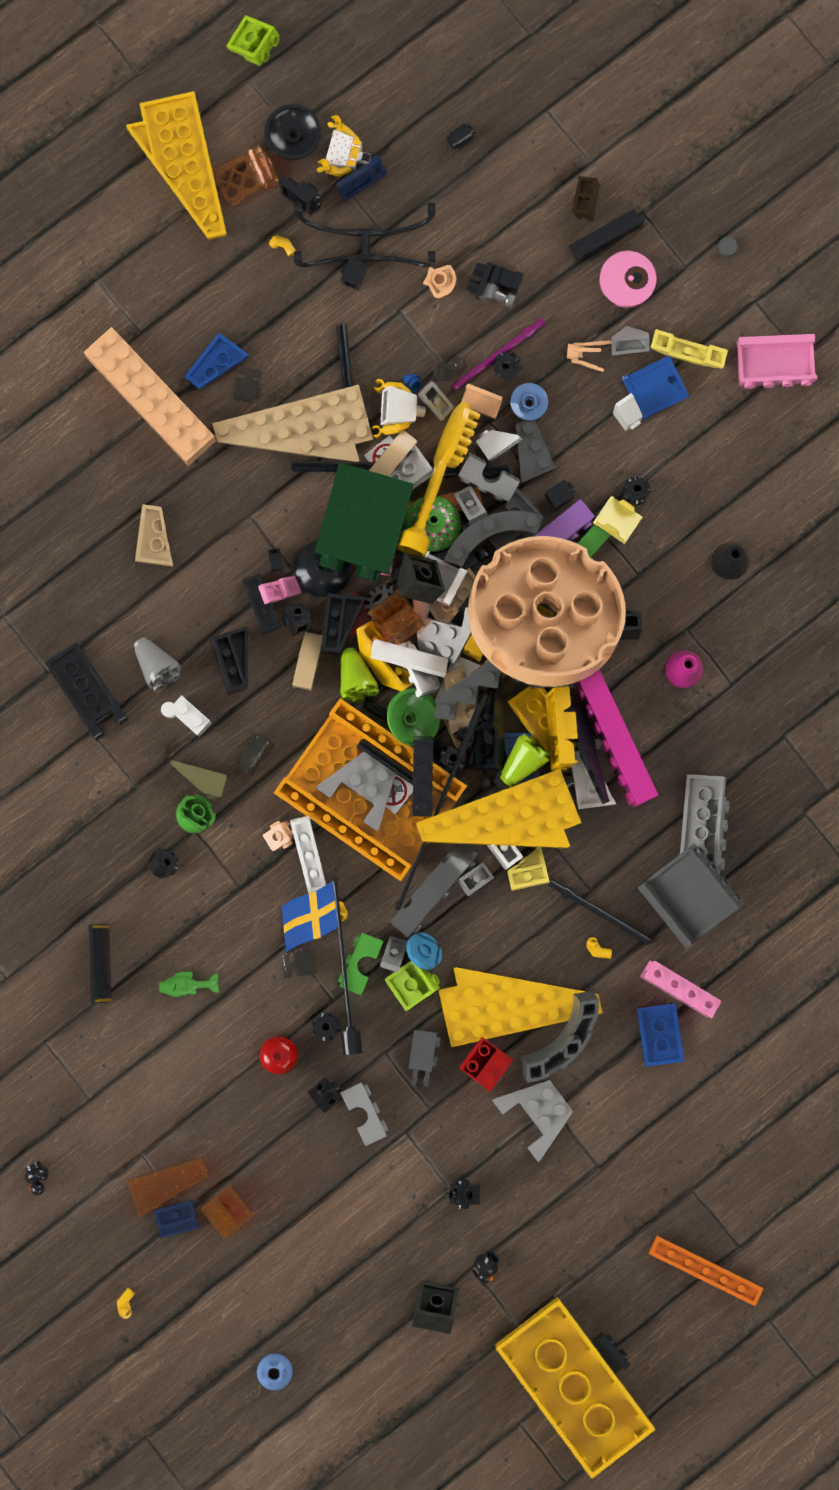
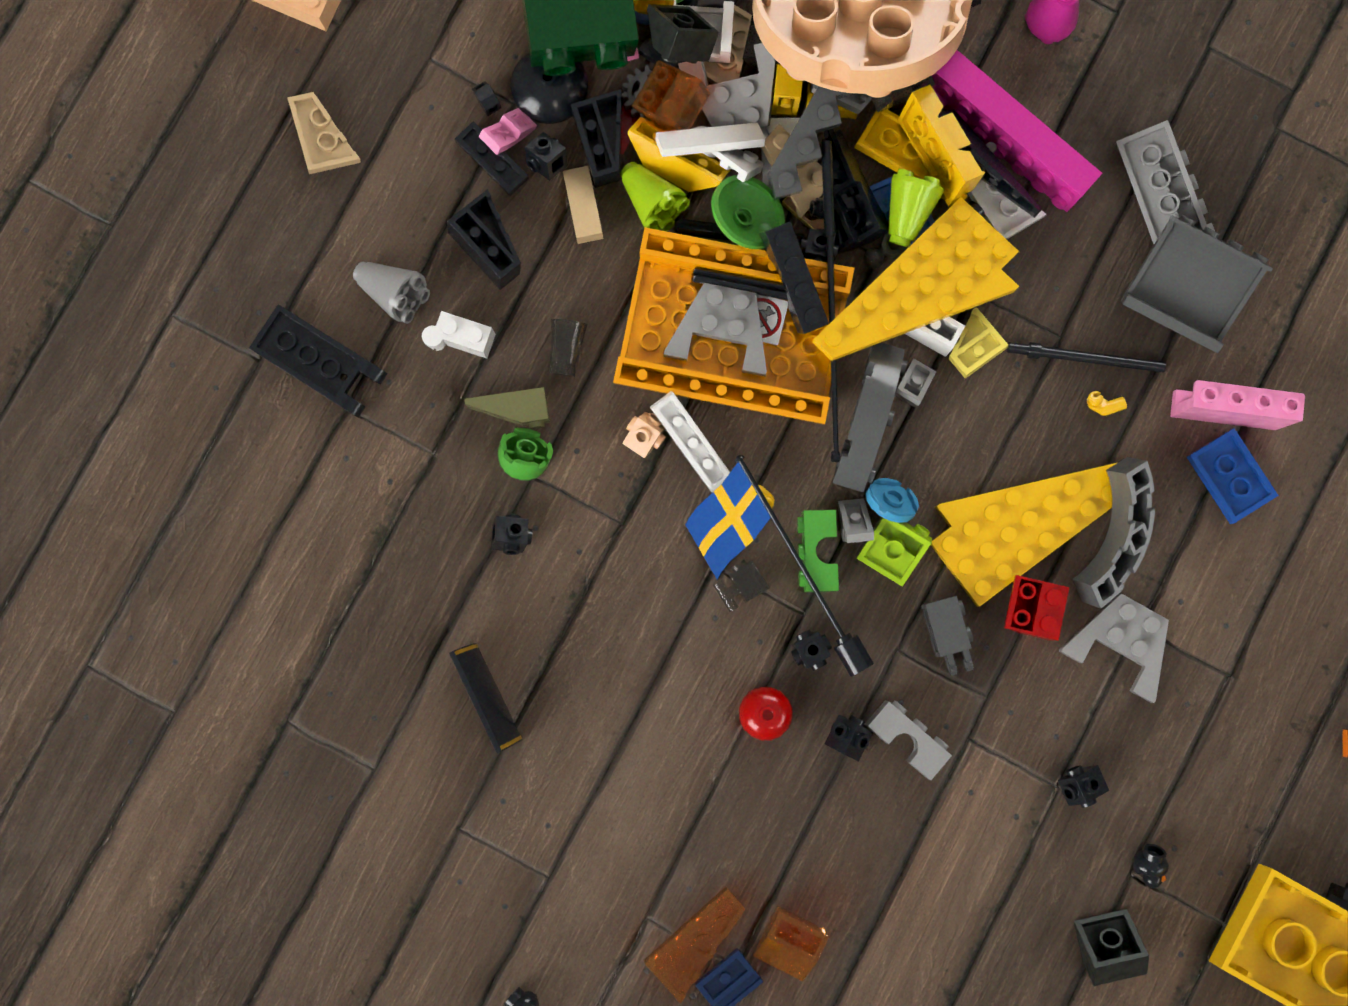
camera: 25 degrees left, 0 degrees up
(183, 984) = (604, 677): bright green animal -> none

